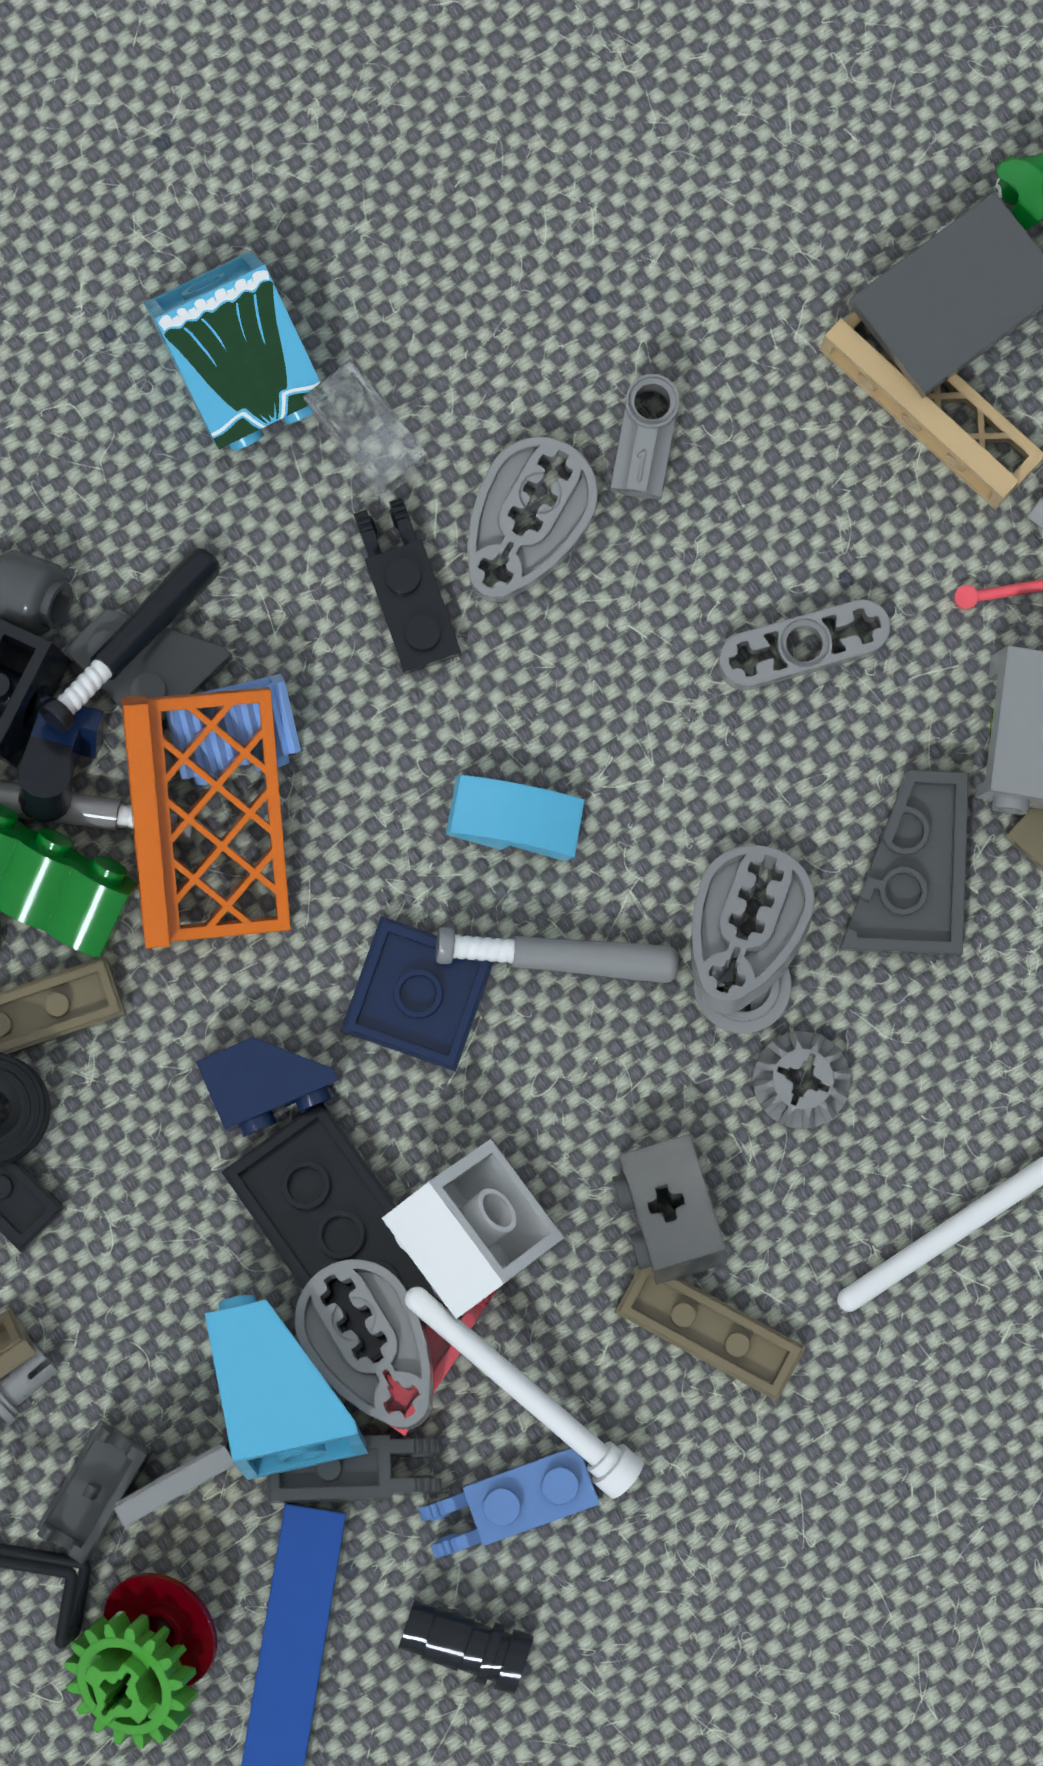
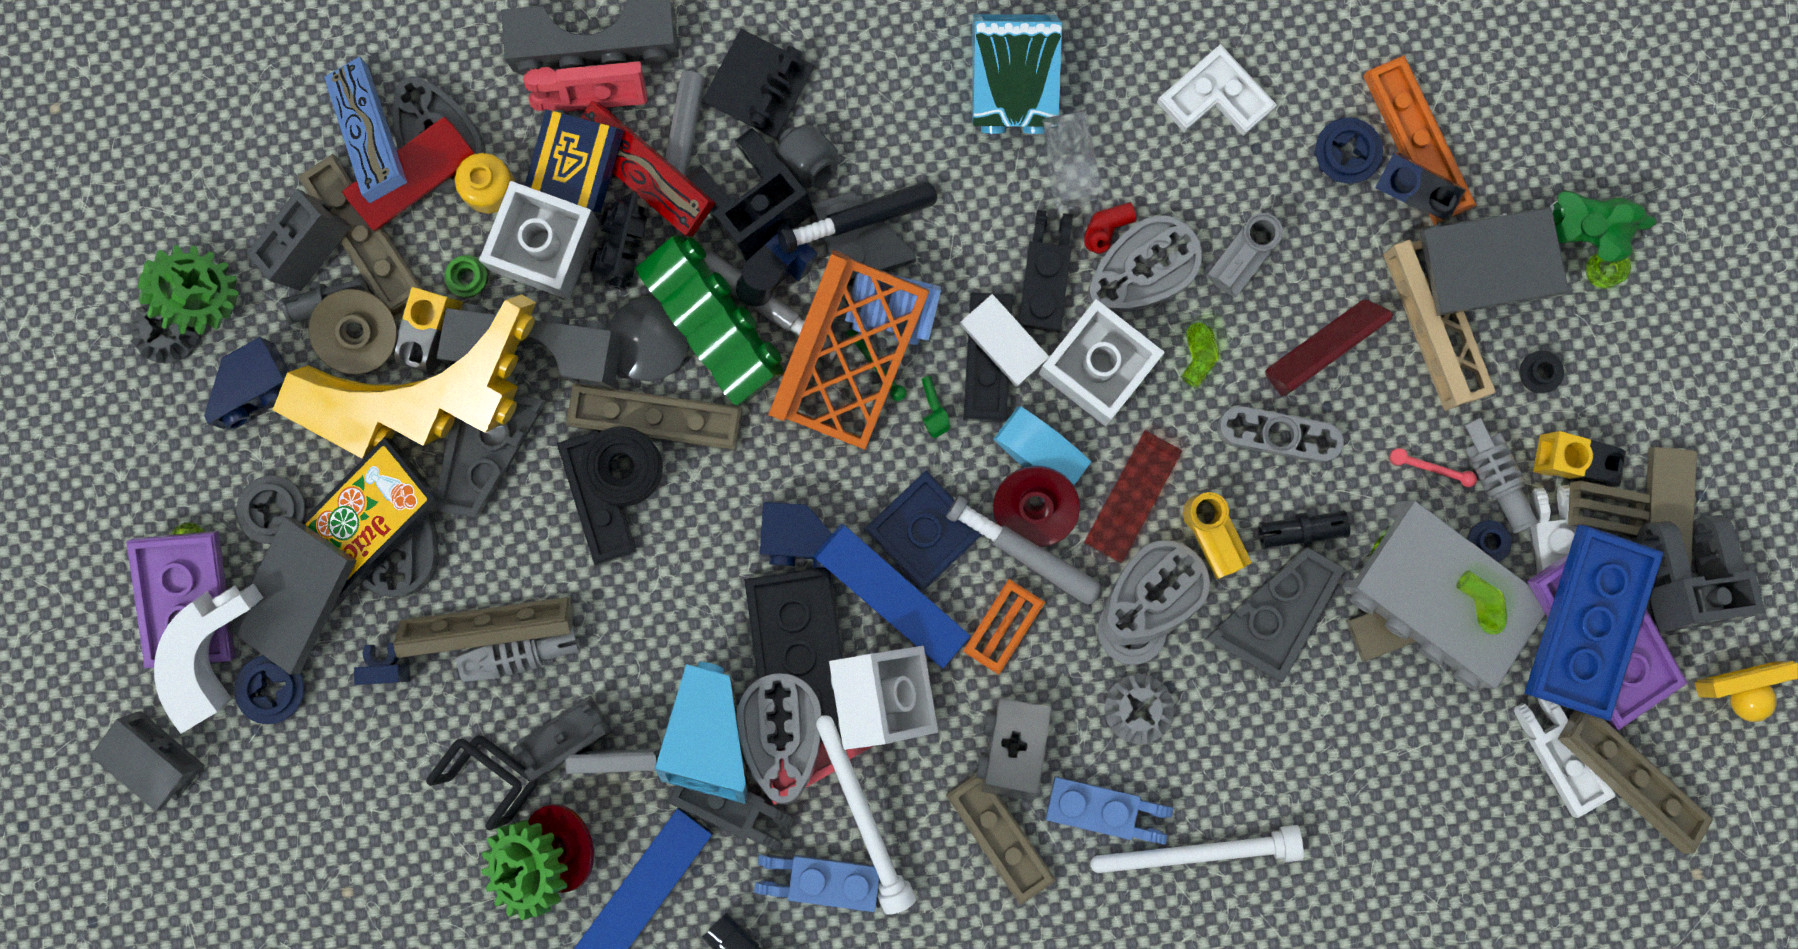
camera: 30 degrees right, 0 degrees up
(295, 835) = (897, 392): none -> green hinge
(364, 847) = (937, 421): none -> green hand
(387, 733) = (985, 383): none -> black tile
(397, 702) = (1004, 340): none -> white tile
(418, 1096) = (891, 595): none -> blue tile
(448, 490) = (1103, 224): none -> red arm
(503, 235) = (1218, 83): none -> white tile
(532, 669) = (1101, 362): none -> white brick
(562, 909) = (1043, 523): none -> dark red dish
(574, 1115) = (1023, 595): none -> orange tile
(656, 589) = (1203, 353): none -> clear neon green arm
(659, 817) = (1132, 496): none -> clear red tile
(730, 224) = (1366, 145): none -> dark blue gear
(791, 182) = (1414, 125): none -> orange tile
(792, 815) = (1218, 538): none -> yellow piece
(806, 503) = (1327, 345): none -> dark red slope
(820, 244) = (1420, 187): none -> leg
(820, 1230) = (1103, 810): none -> medium blue hinge
(893, 749) = (1304, 529): none -> black pin

